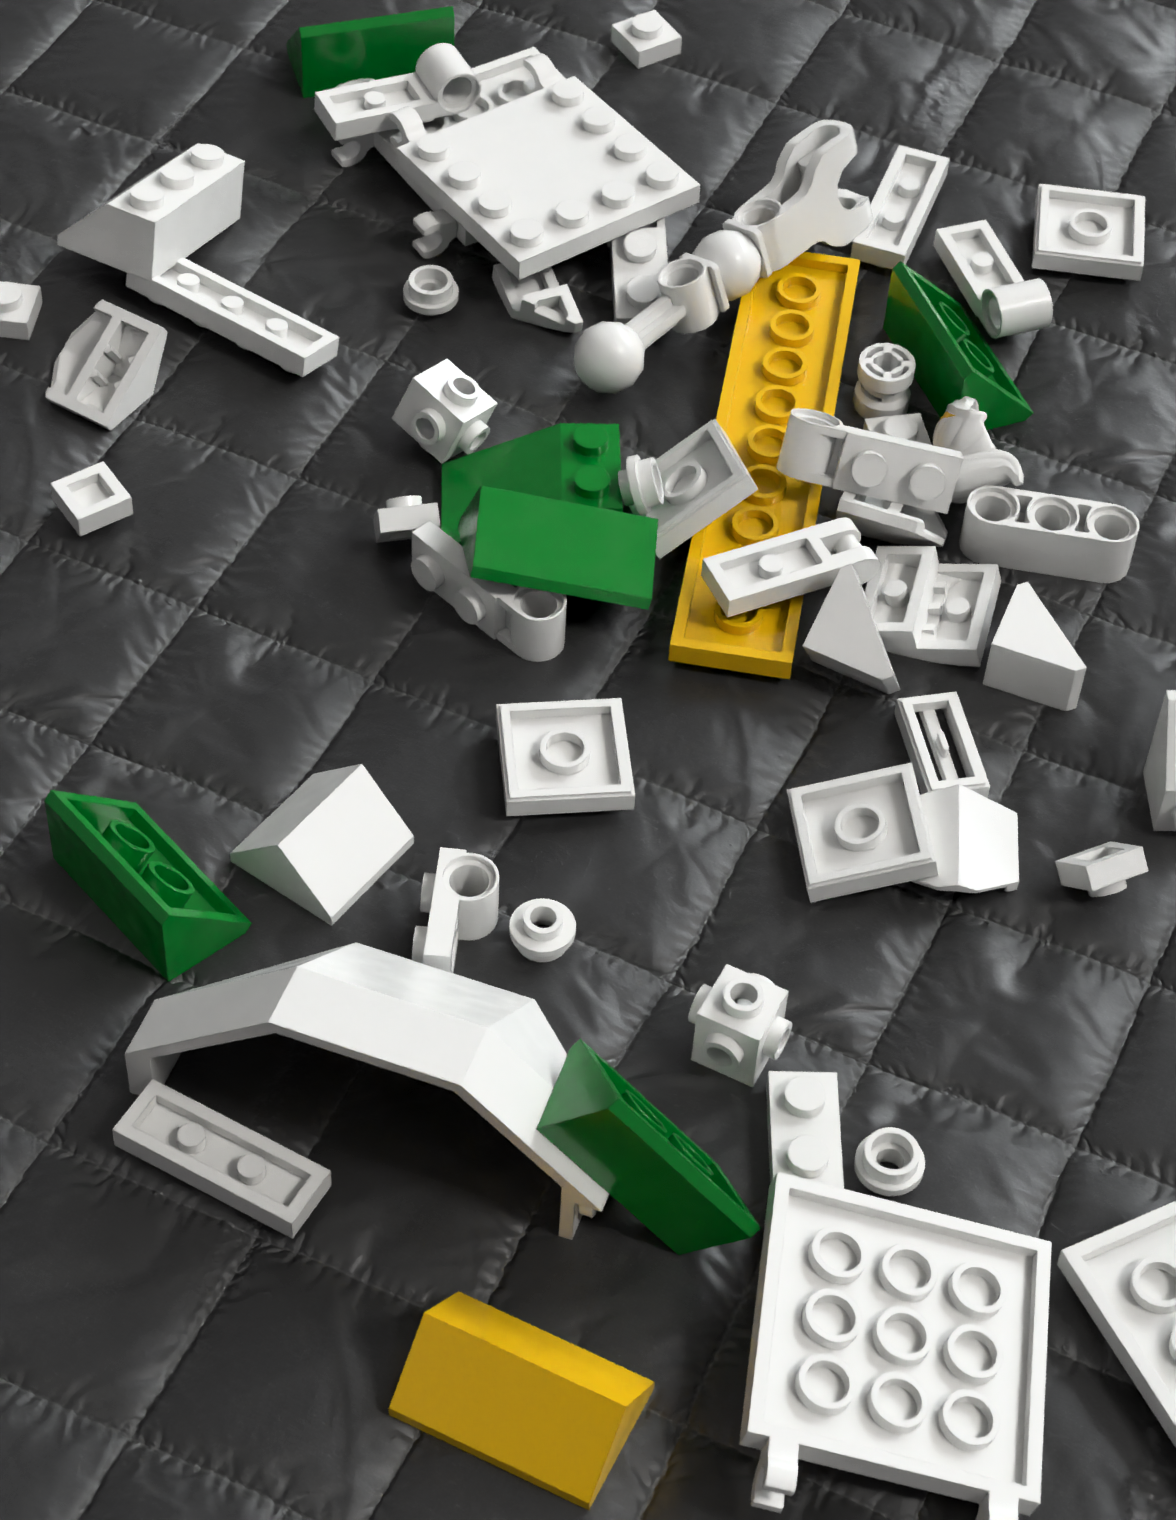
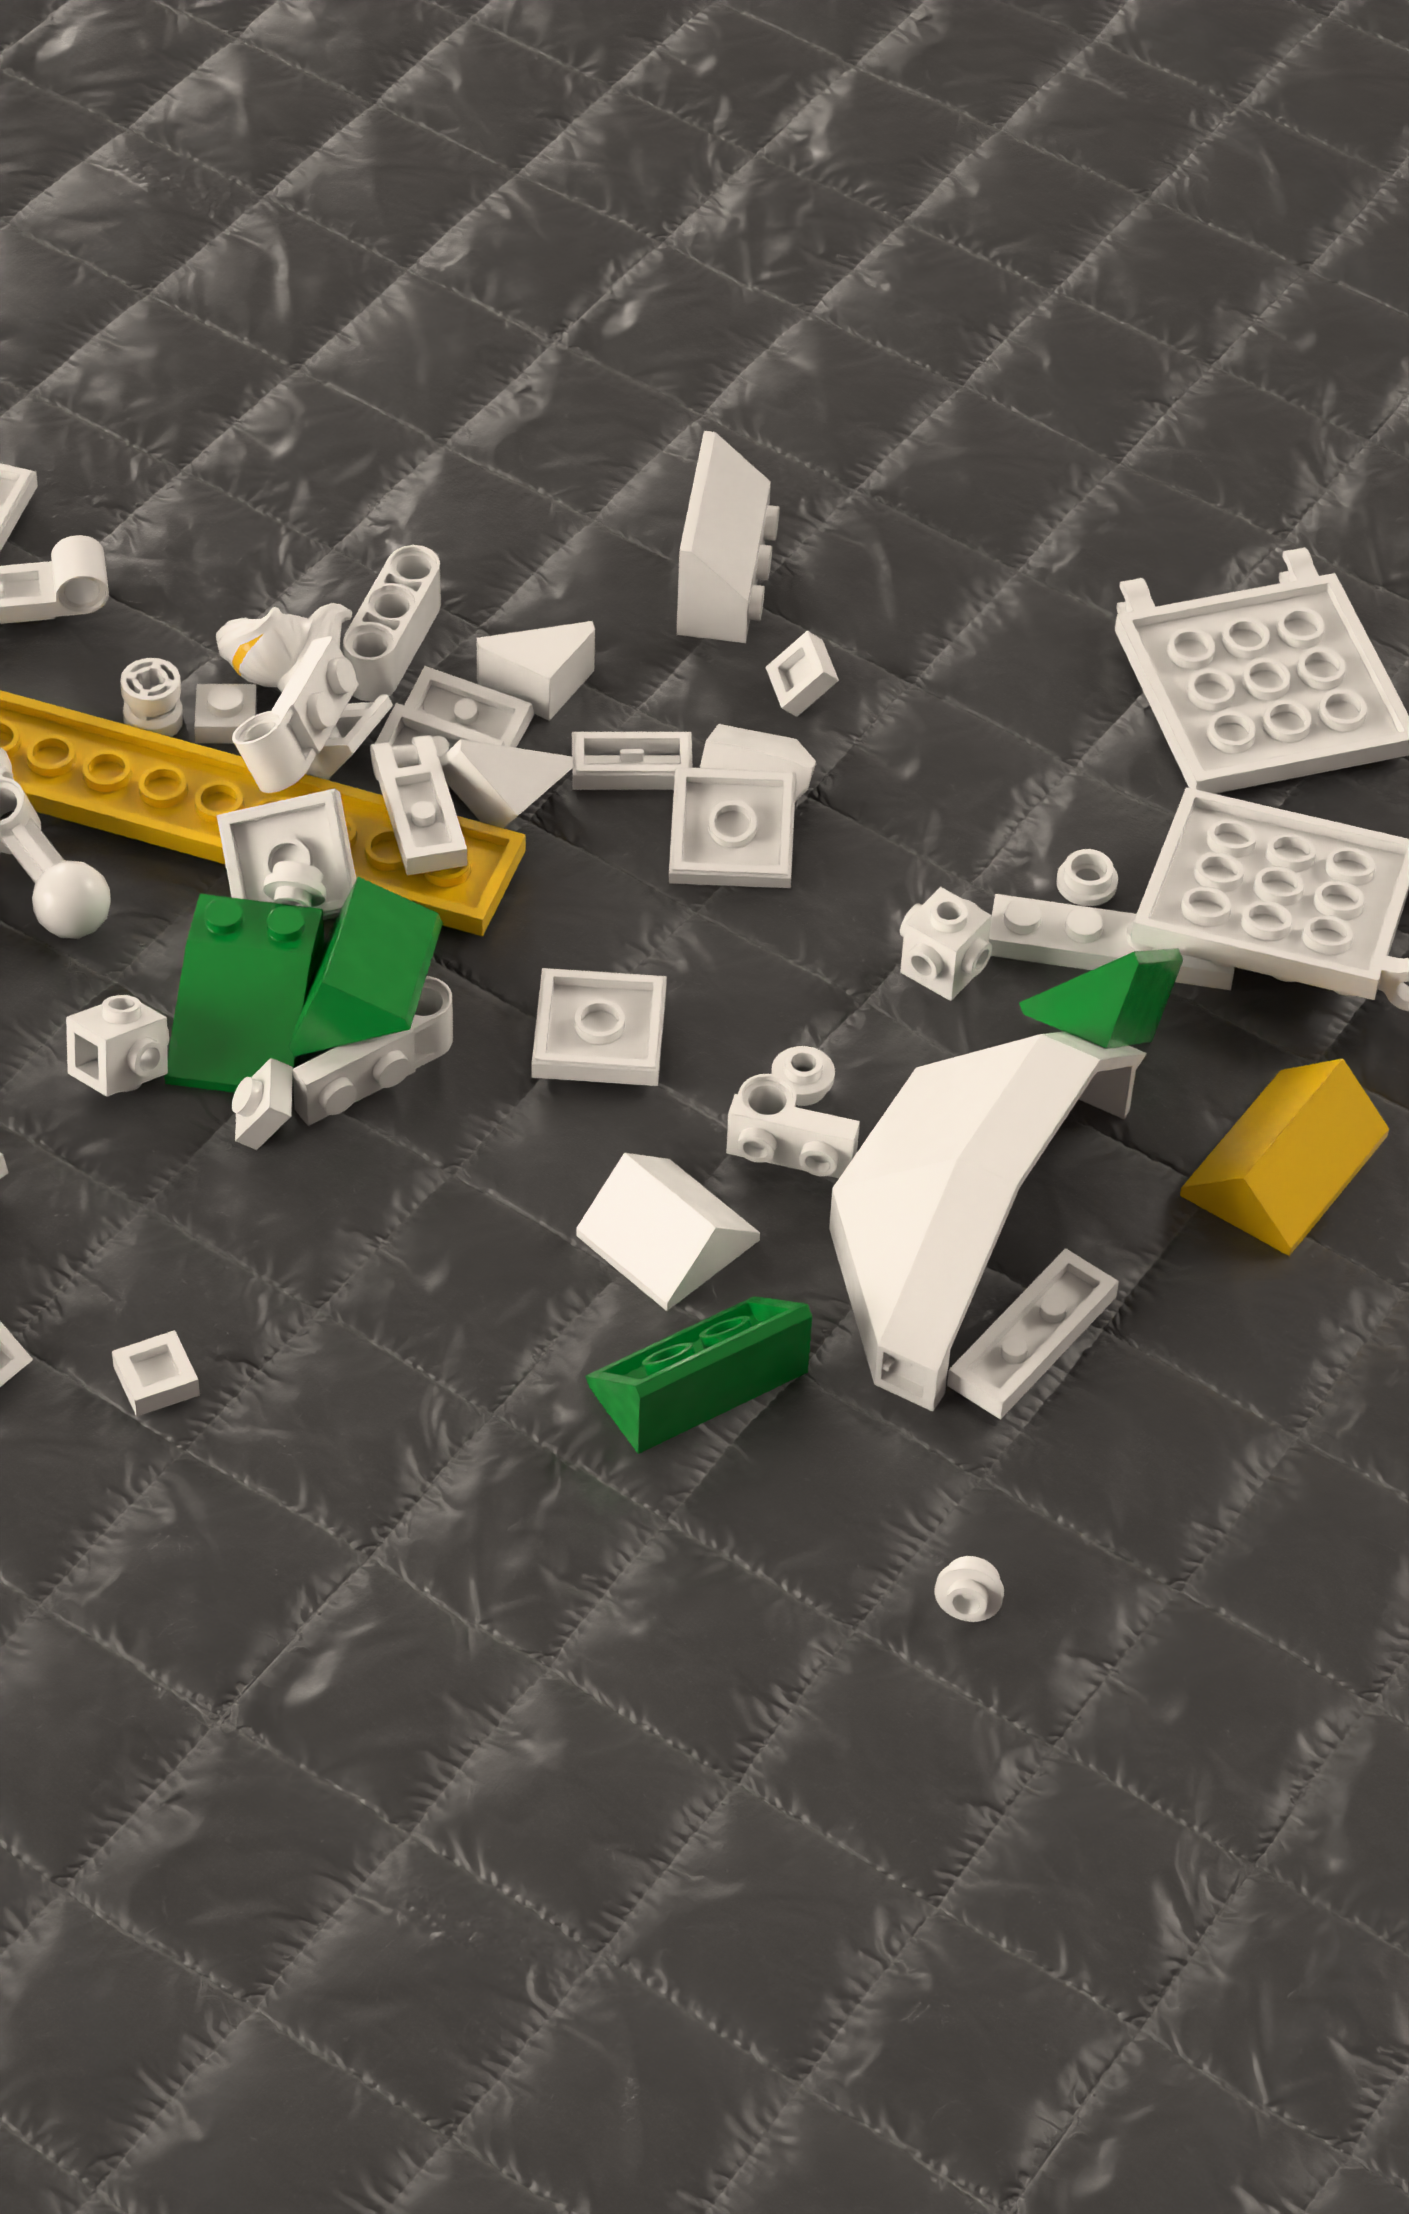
camera: 80 degrees left, 0 degrees up
(949, 350) = (96, 651): green slope -> none

